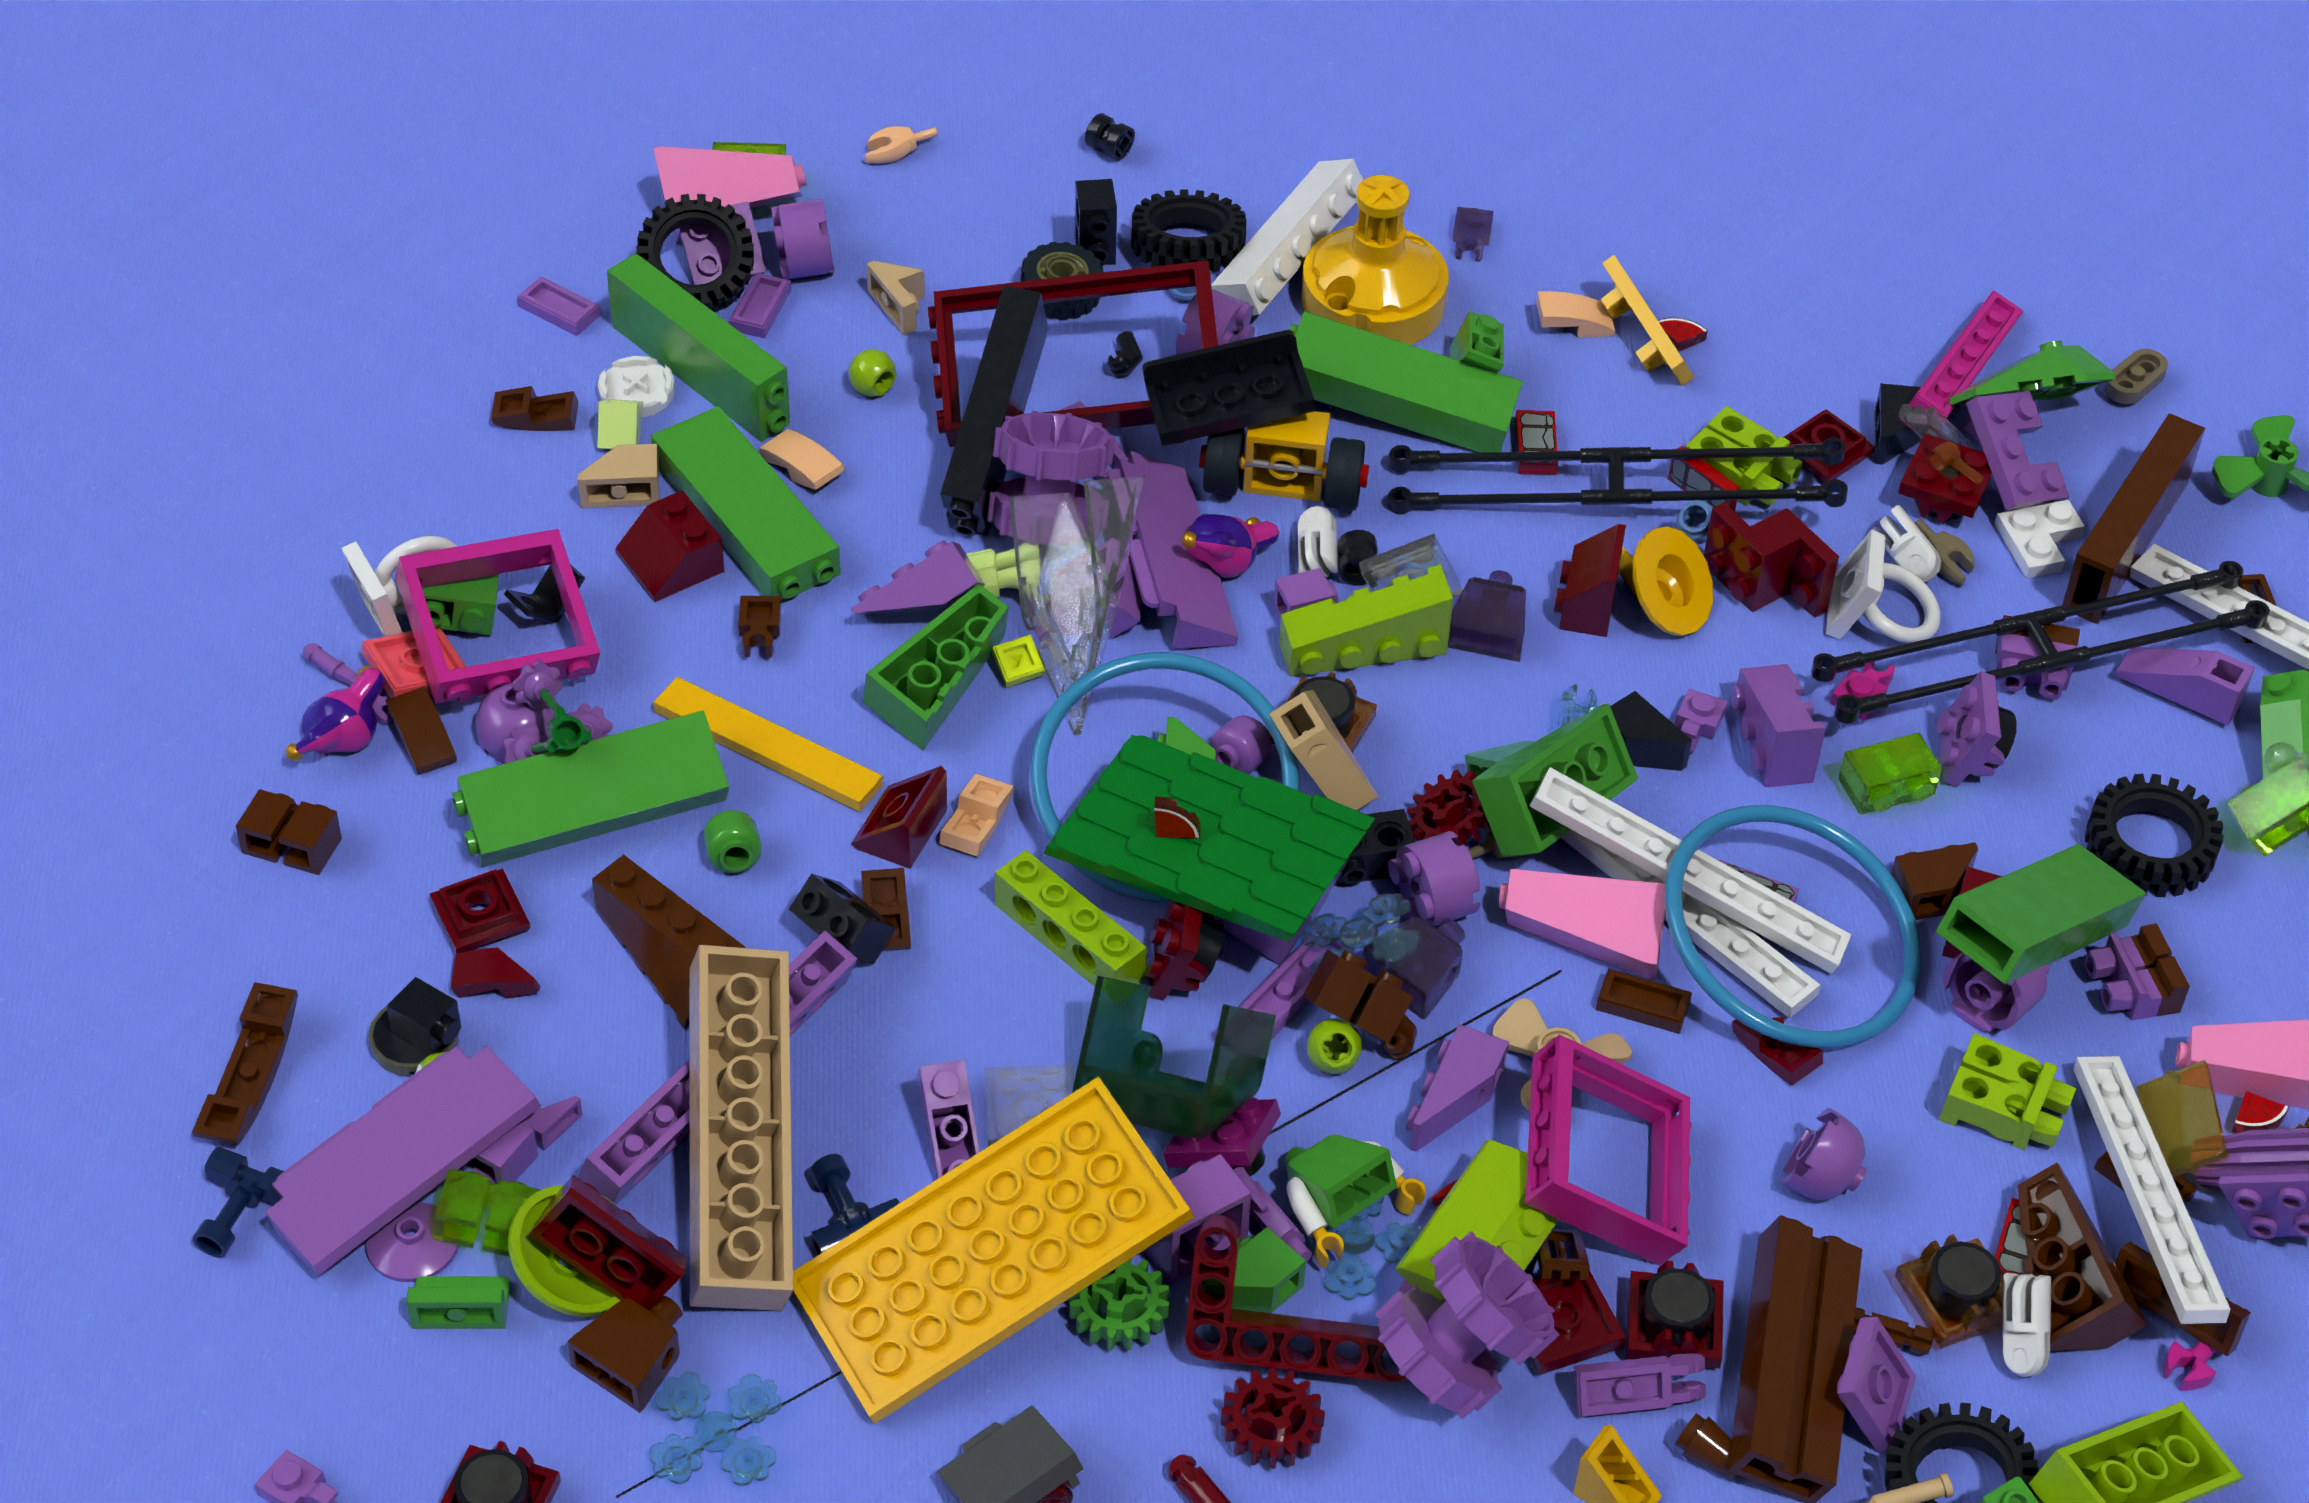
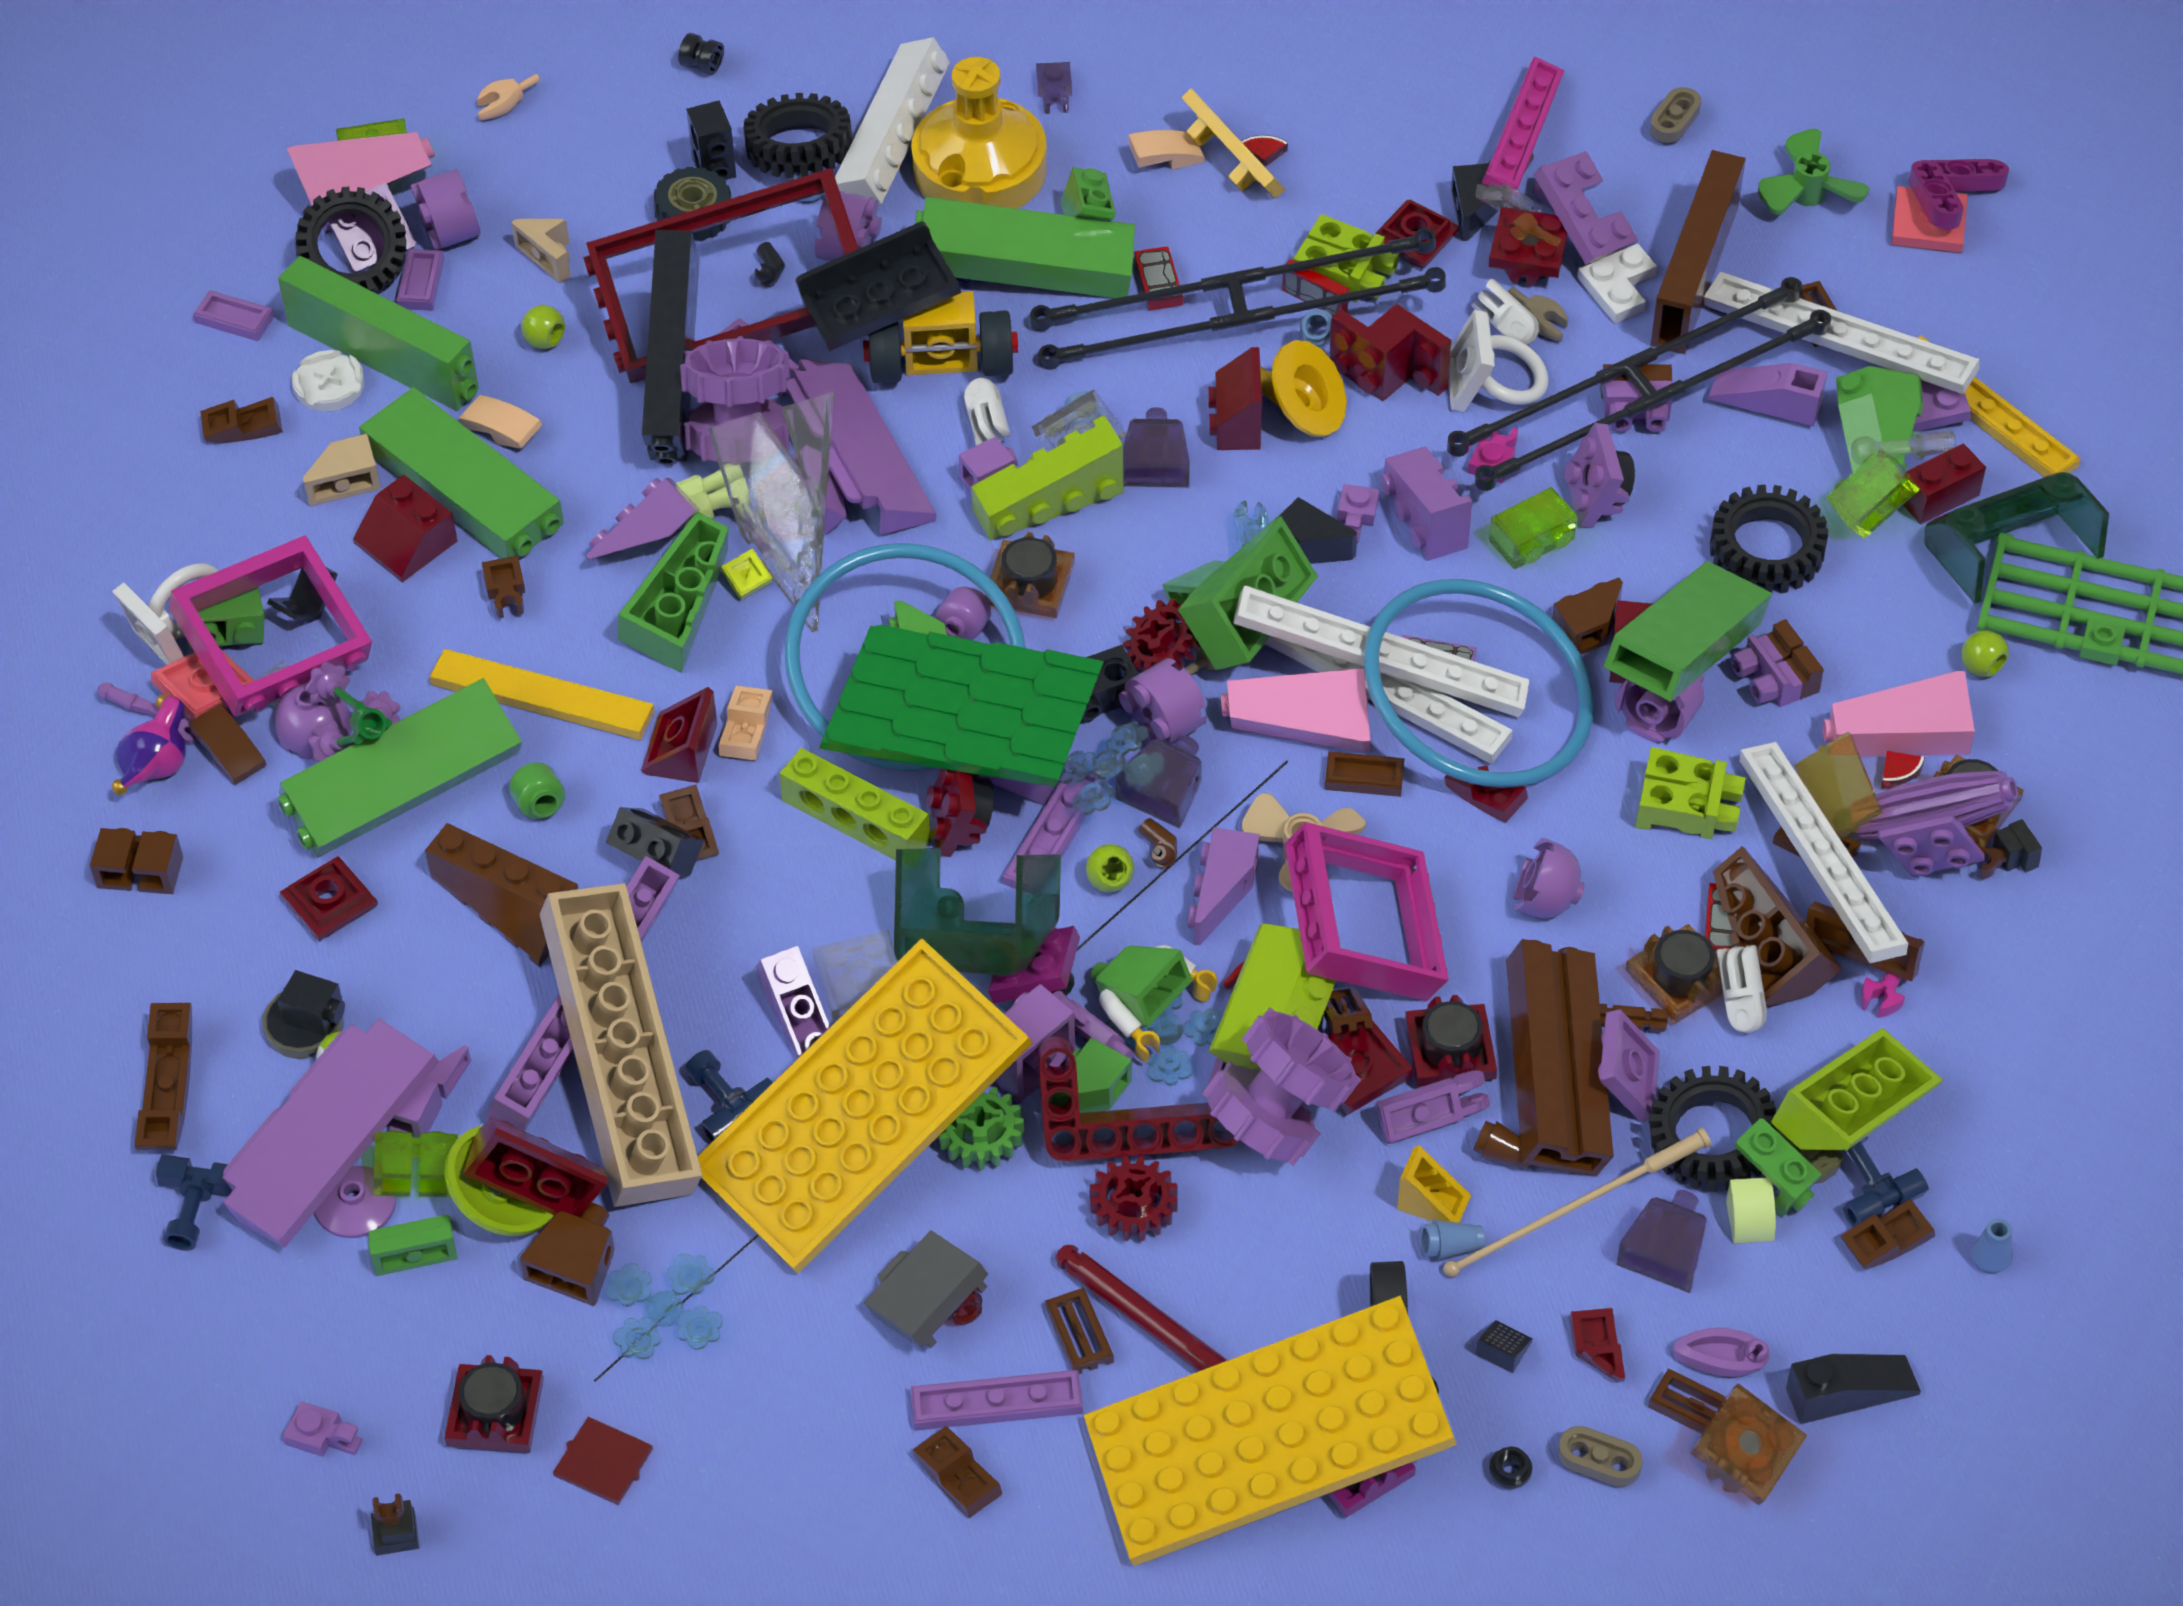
camera: 10 degrees left, 5 degrees up
(489, 970) = (355, 949): dark red slope -> none
(619, 422) = (324, 419): yellowish green brick -> none
(1174, 820) = (930, 698): tile -> none
(1228, 542) = (907, 427): piece -> none
(1323, 750) = (1040, 607): tan slope -> none
(1353, 548) = (1023, 413): black wheel -> none
(1357, 995) = (1121, 820): reddish brown piece -> none
(2047, 374) = (1592, 131): bright green wedge -> none

